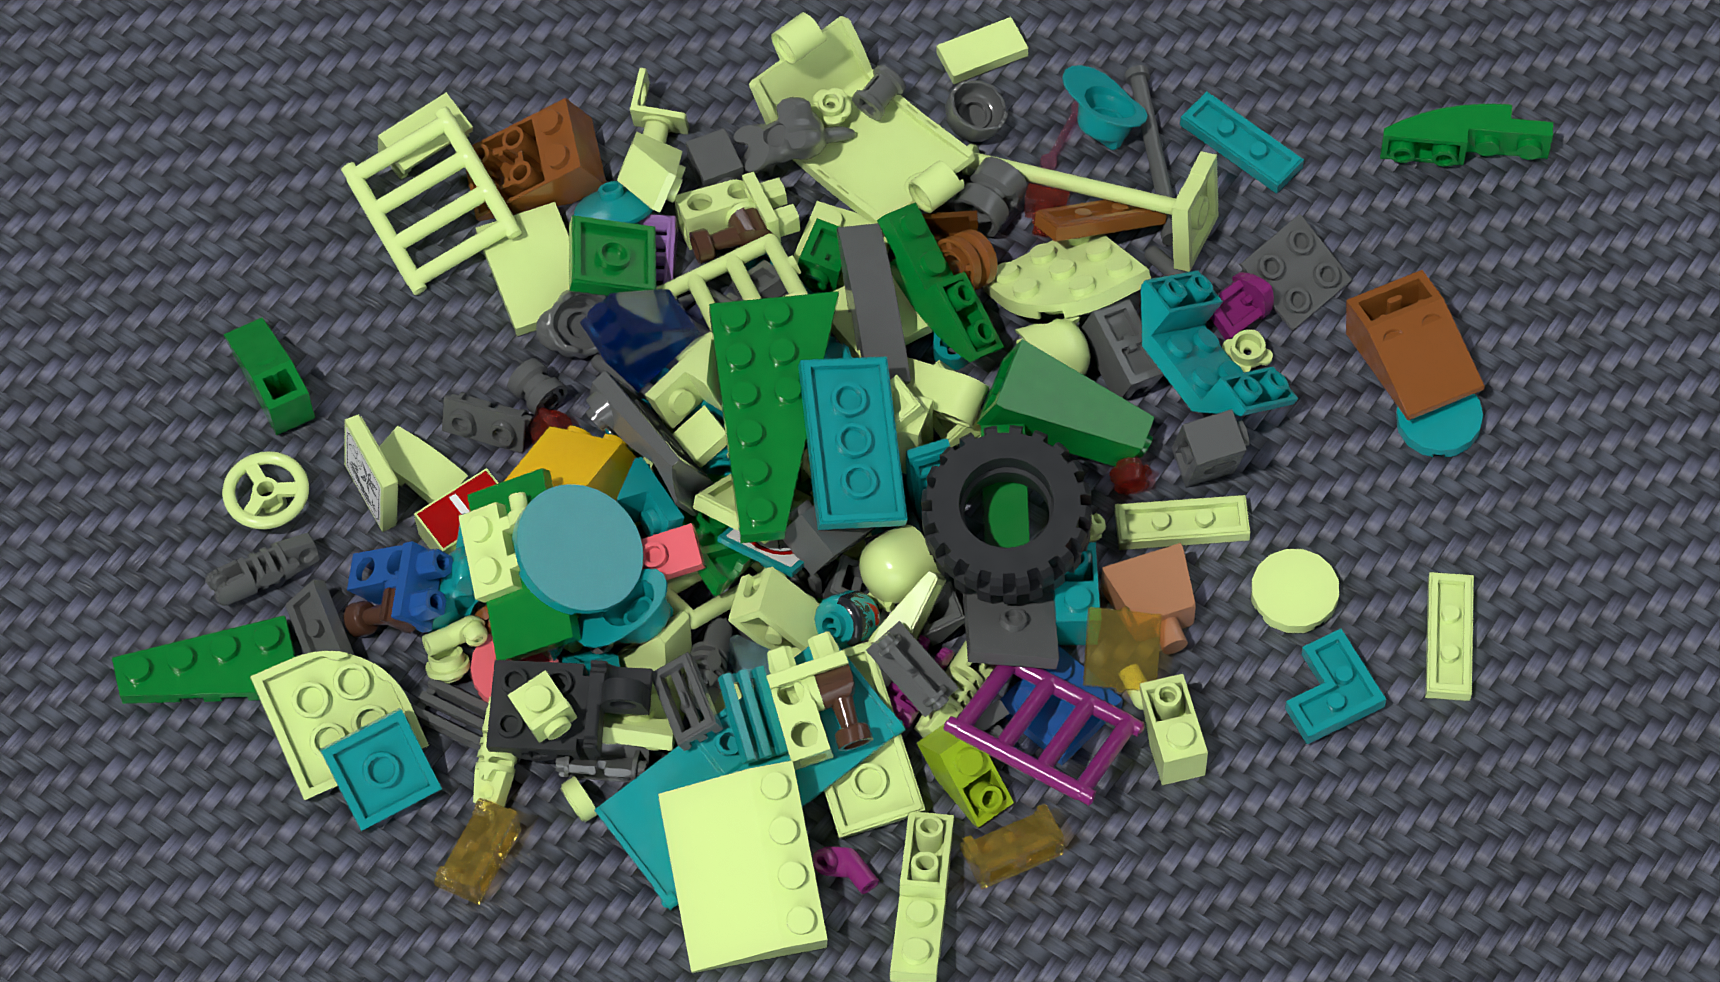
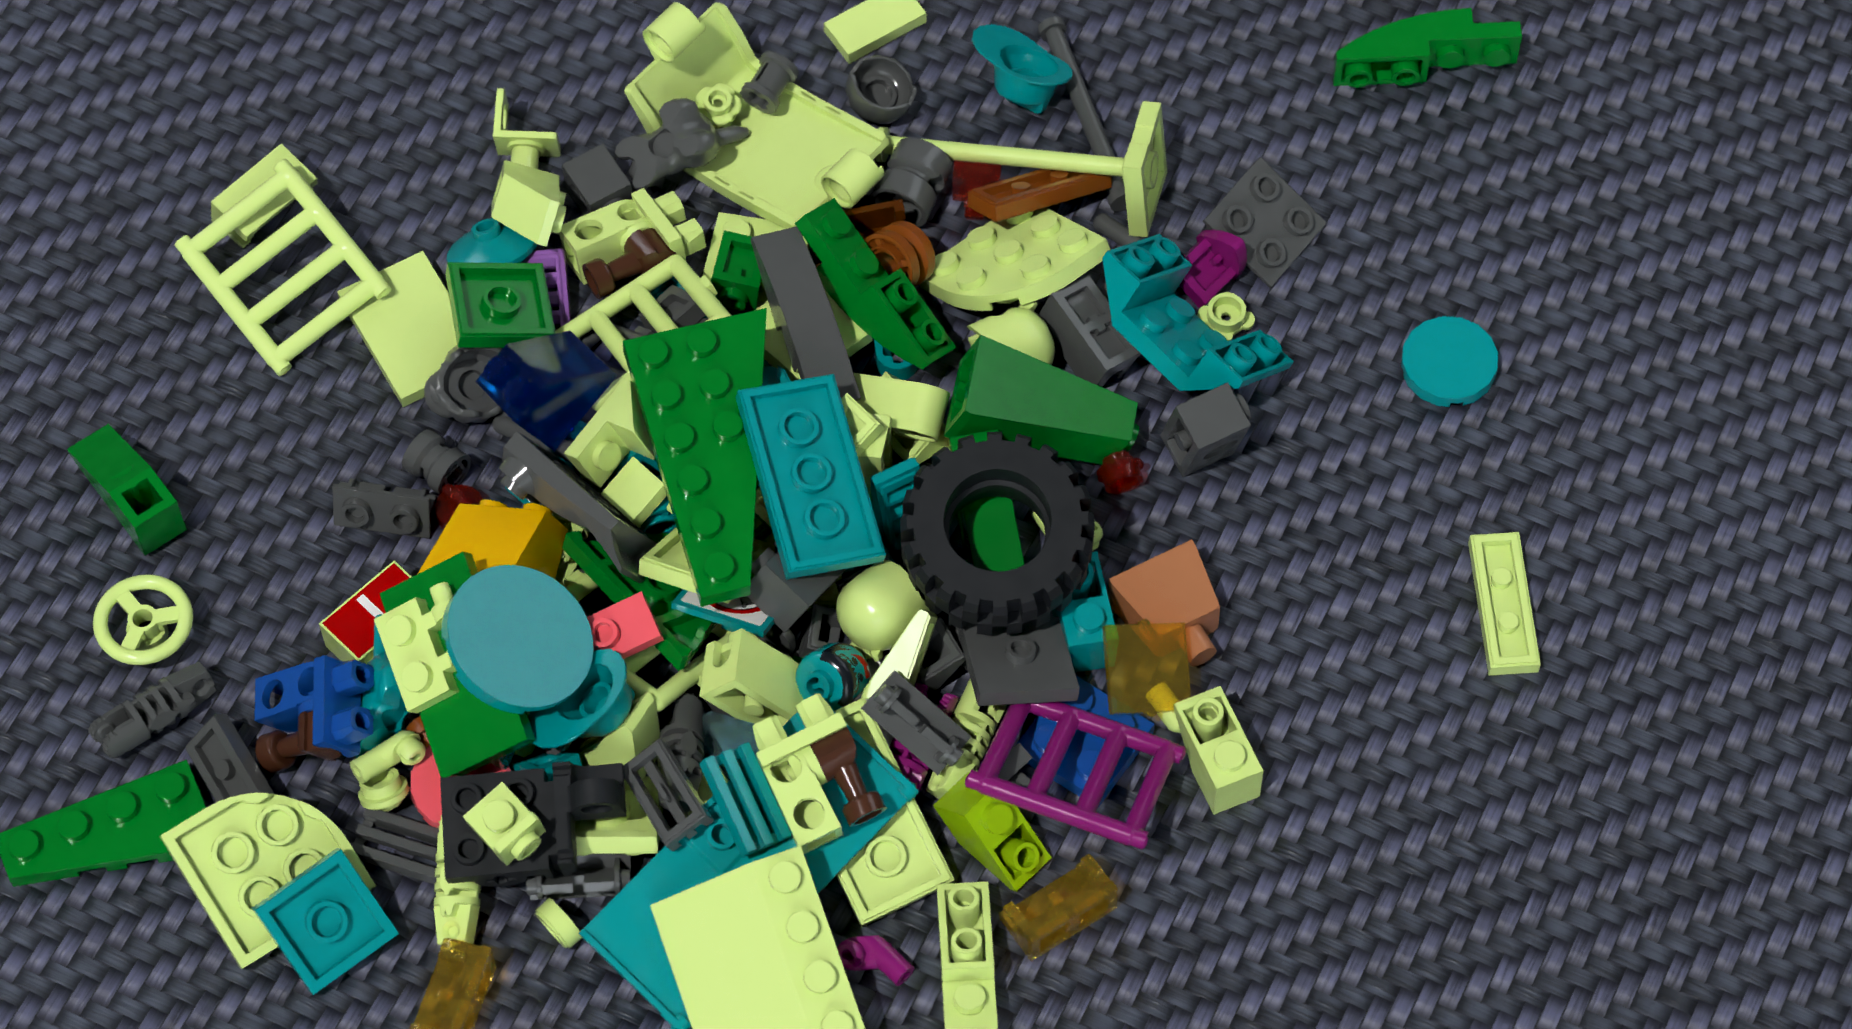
camera: 10 degrees left, 0 degrees up
(371, 472) = (262, 583): yellowish green tile -> none
(420, 465) = (313, 567): yellowish green slope -> none
(542, 160) = (401, 205): dark orange slope -> none
(648, 501) = (587, 572): teal slope -> none
(1049, 160) = (970, 133): clear pink hinge -> none
(1182, 522) = (1186, 516): yellowish green tile -> none
(1241, 142) = (1179, 87): teal tile -> none
(1295, 590) = (1324, 575): yellowish green tile -> none
(1344, 691) = (1399, 681): teal plate -> none
(1412, 344) = (1408, 285): dark orange slope -> none

